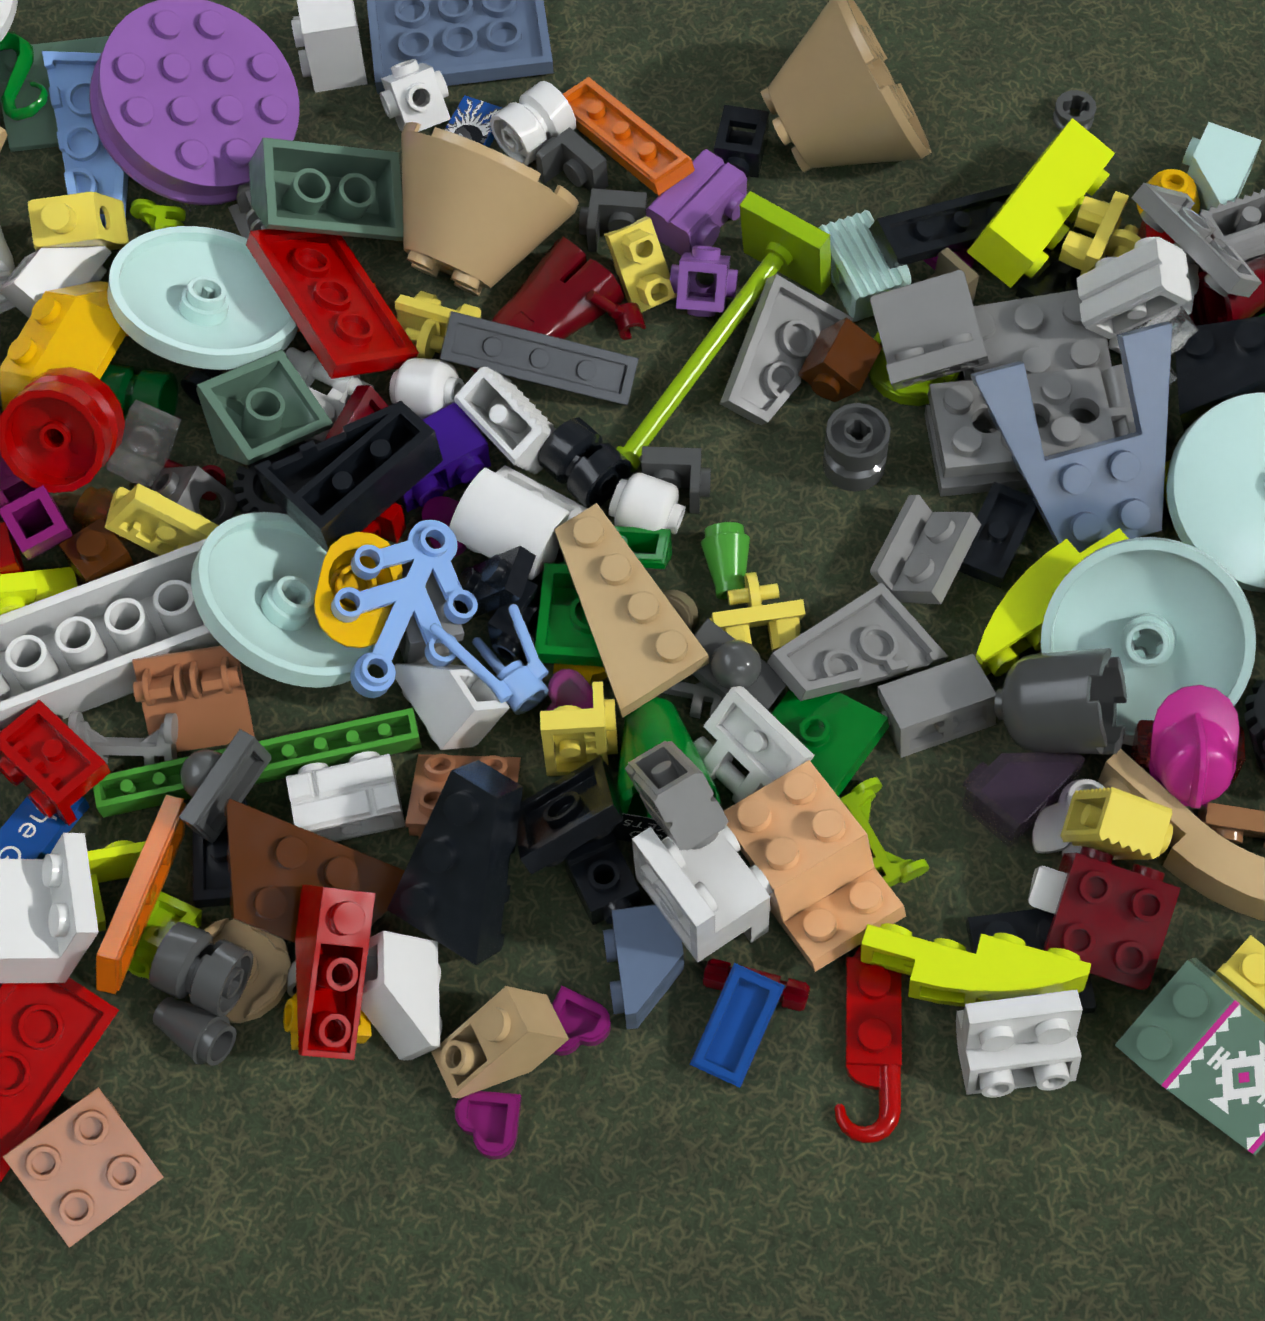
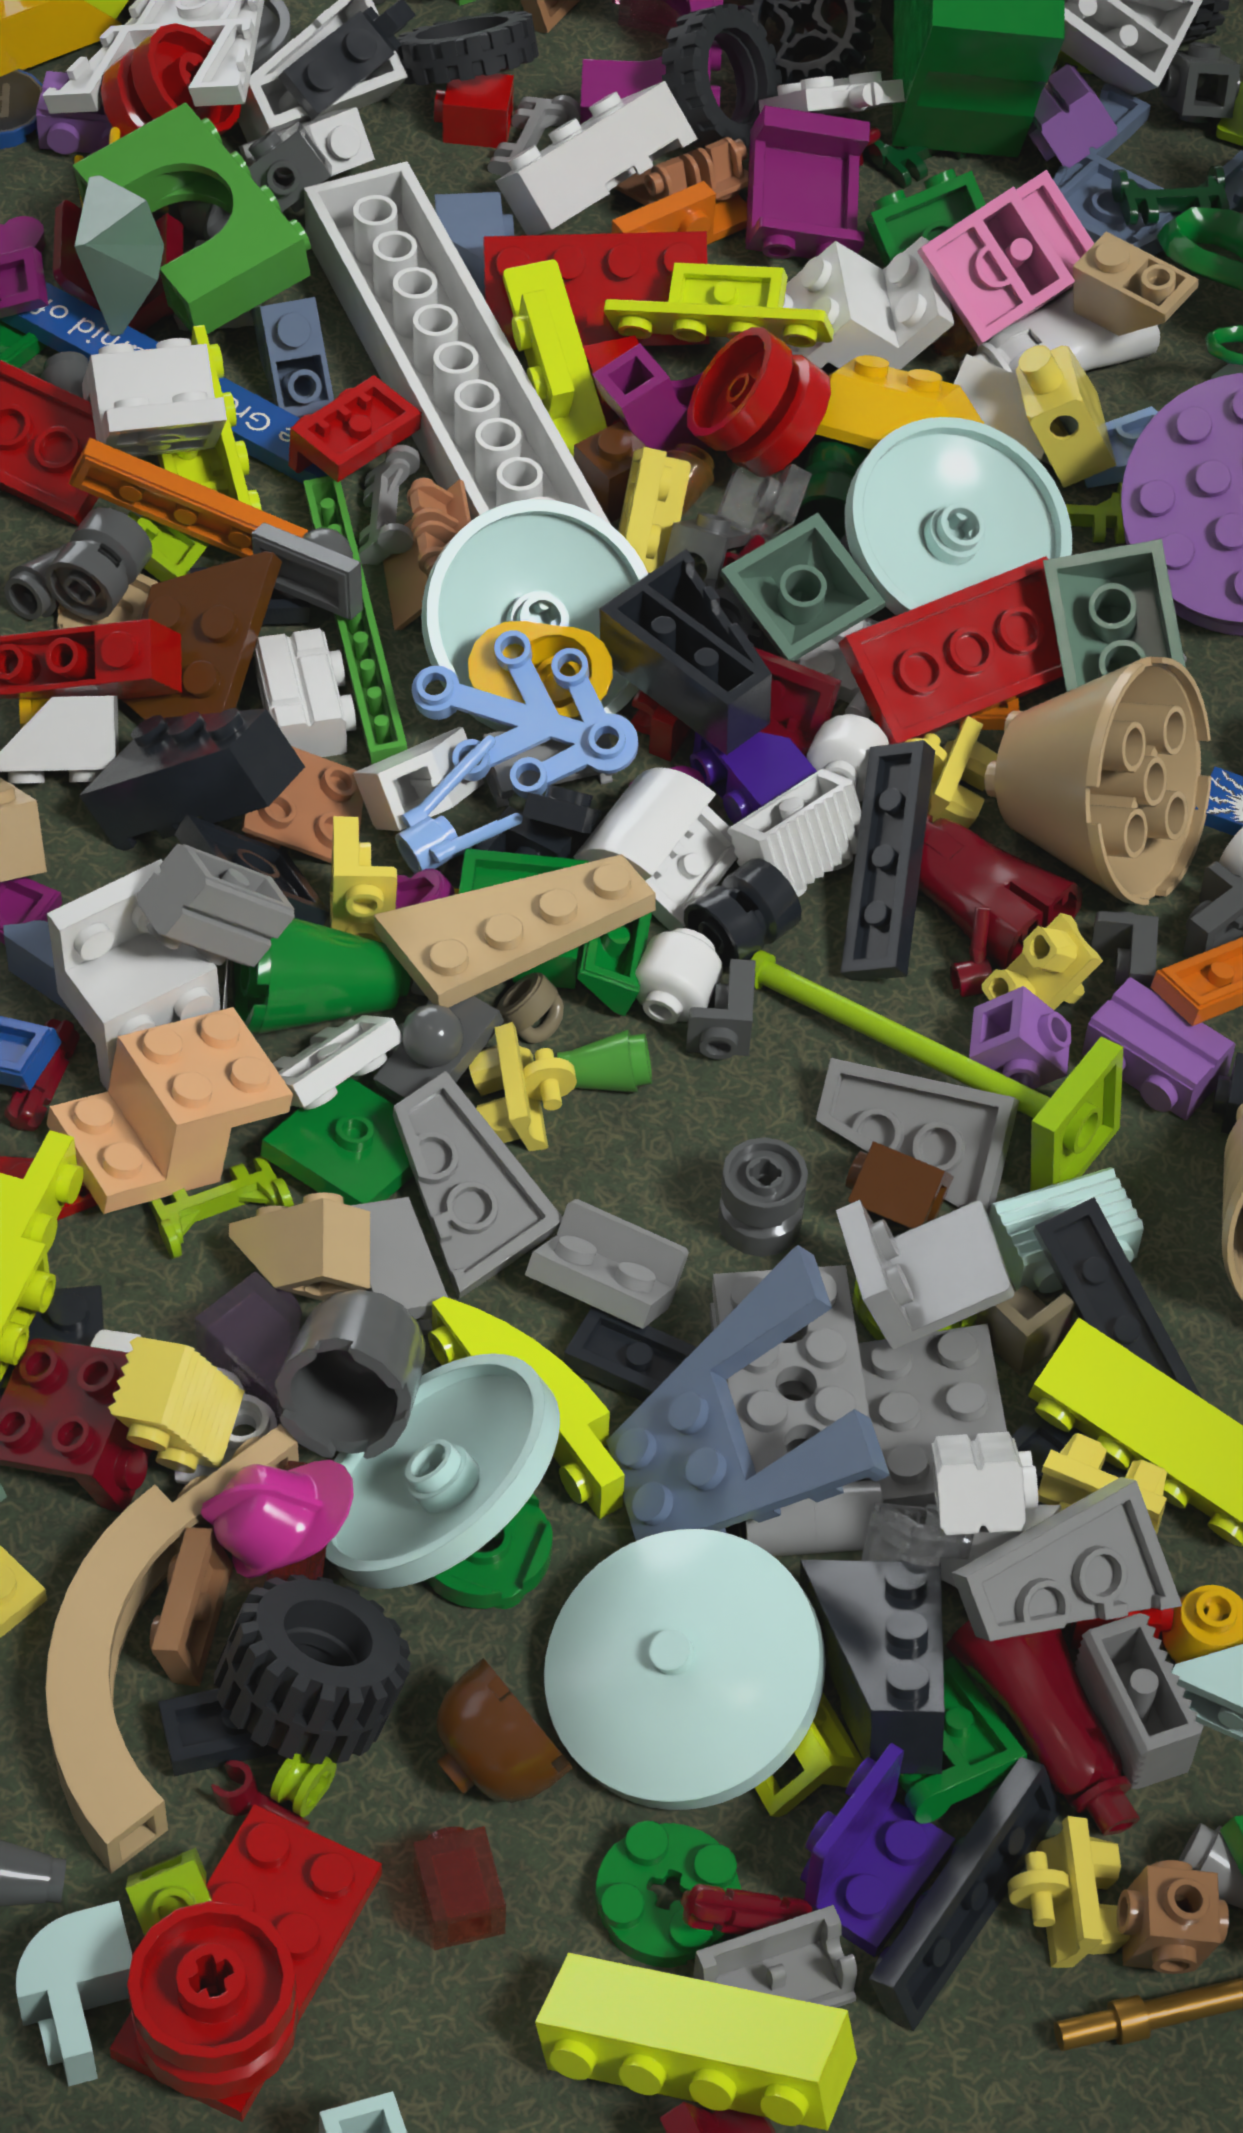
camera: 85 degrees right, 10 degrees down
(942, 754) = (309, 1246): none -> tan slope

